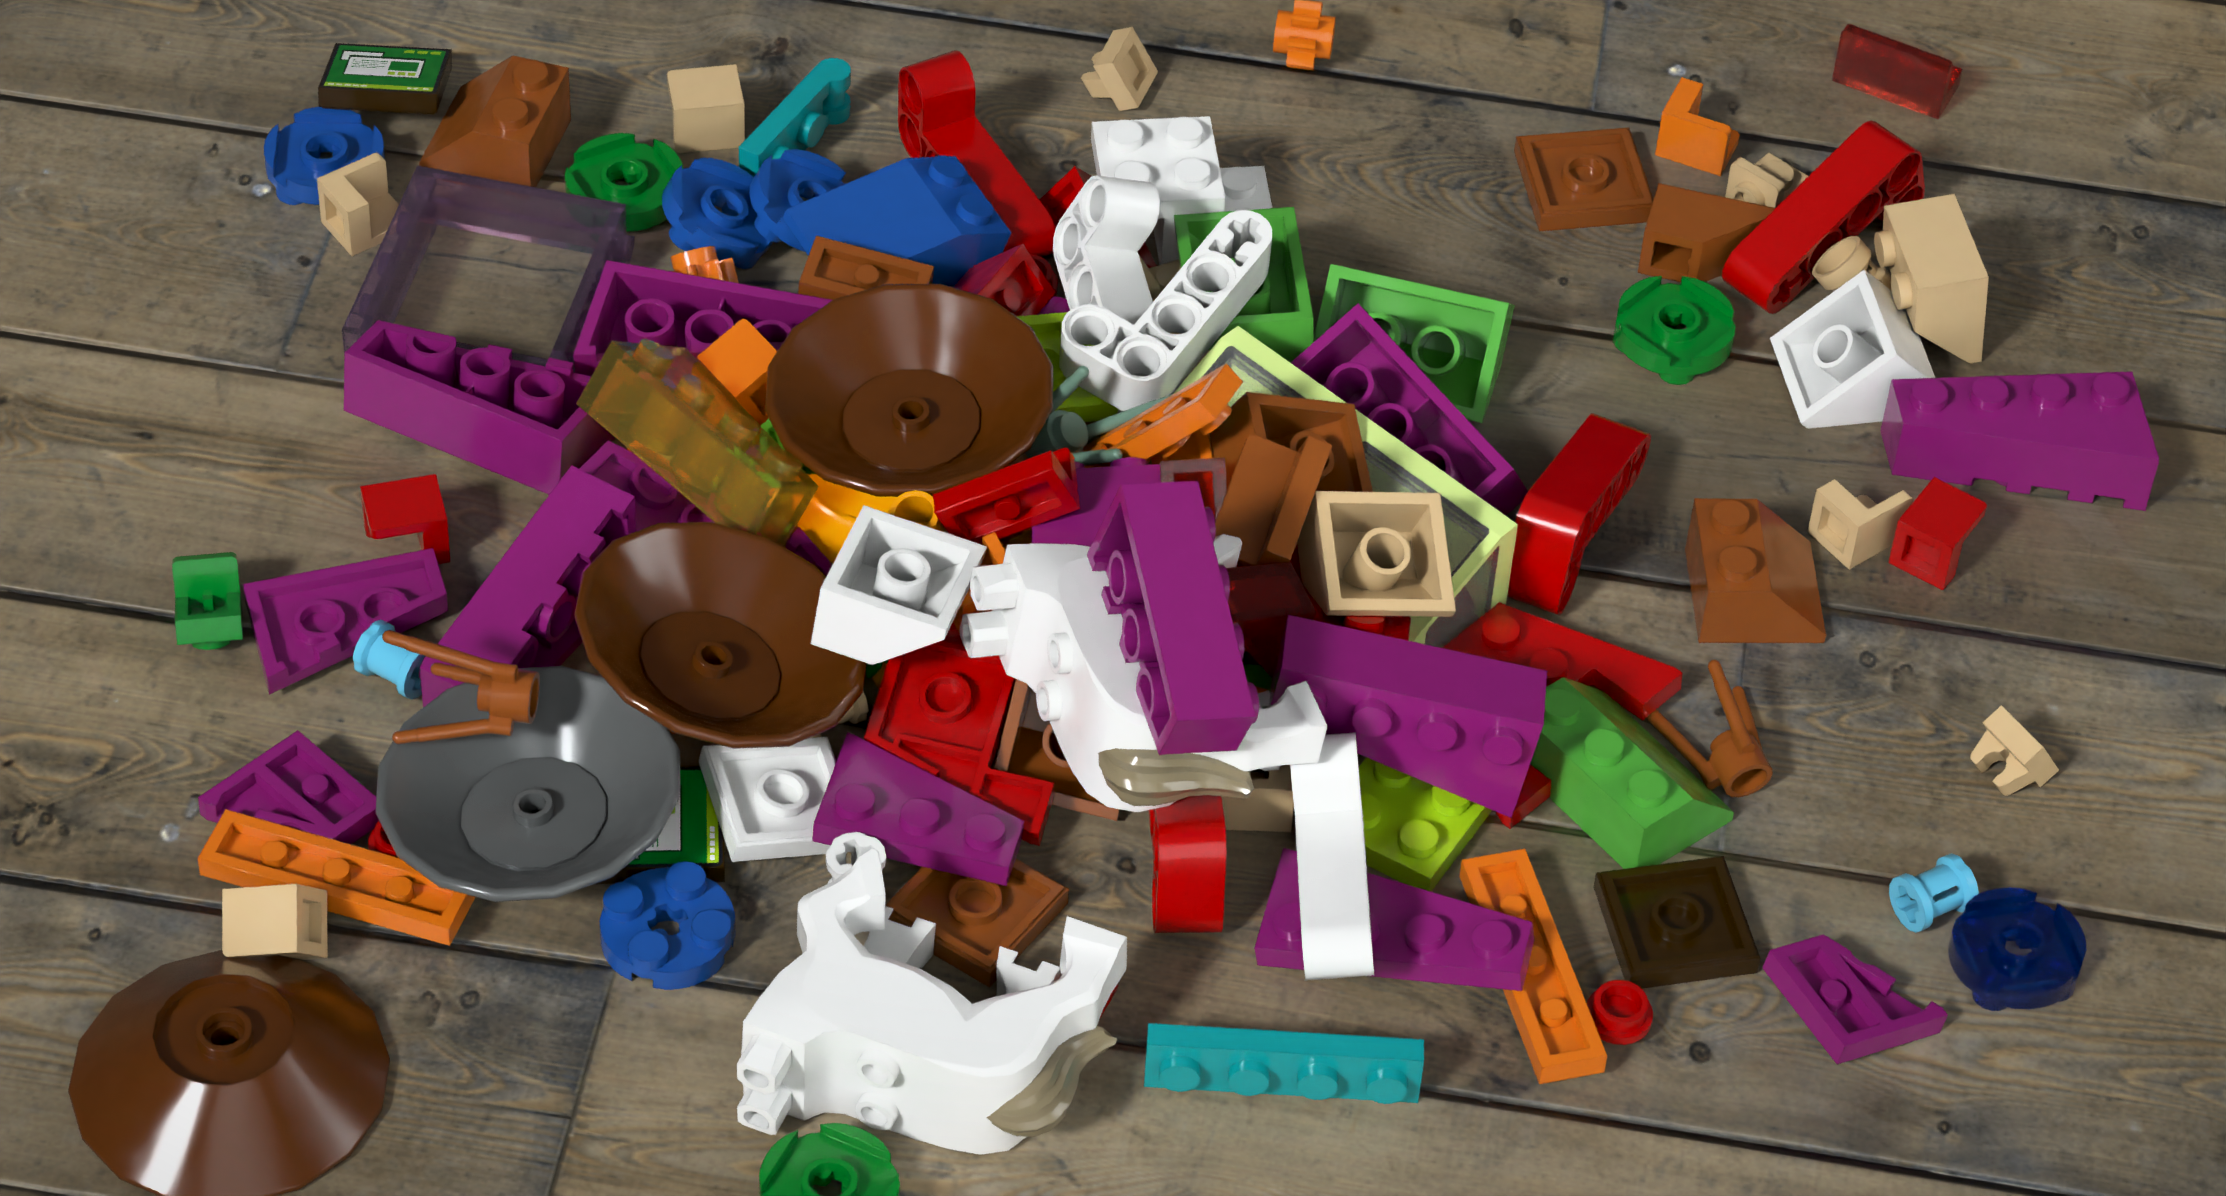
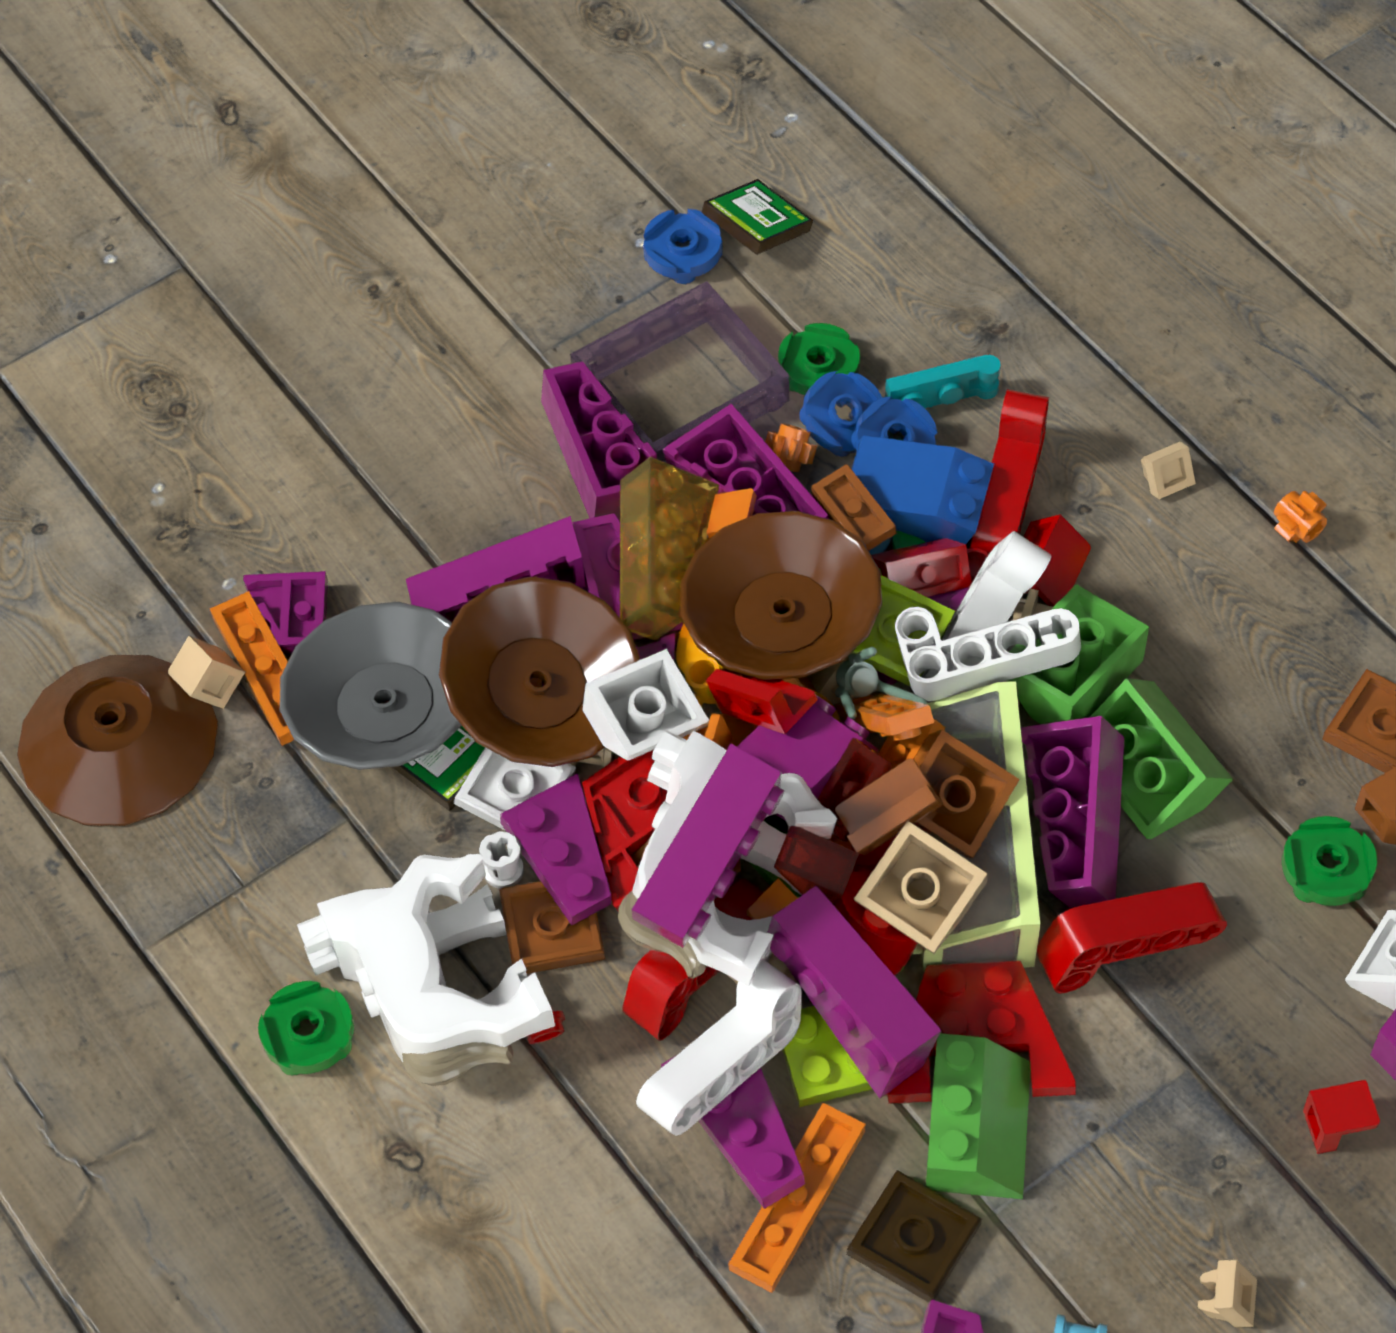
camera: 50 degrees right, 10 degrees up
(207, 600) = (361, 470): green bracket -> none
(320, 614) = (417, 517): magenta wing -> none
(357, 203) = (668, 279): tan panel -> none
(388, 661) = (413, 557): medium azure bush -> none
(405, 509) = (501, 483): red panel -> none
(503, 691) = (405, 625): dark orange plant -> none
(504, 123) = (790, 287): dark orange slope -> none
(662, 895) = (387, 793): blue plate -> none
(706, 108) = (905, 342): tan panel -> none
(1182, 165) = (1113, 562): white bracket -> none
(1283, 1063) = (609, 1158): teal plate -> none
(1620, 1012) = (816, 1265): red plate -> none
(1736, 754) = (1055, 1166): dark orange plant -> none
(1751, 575) = (1194, 1057): dark orange slope -> none
(1854, 526) = (1300, 1071): tan panel -> none

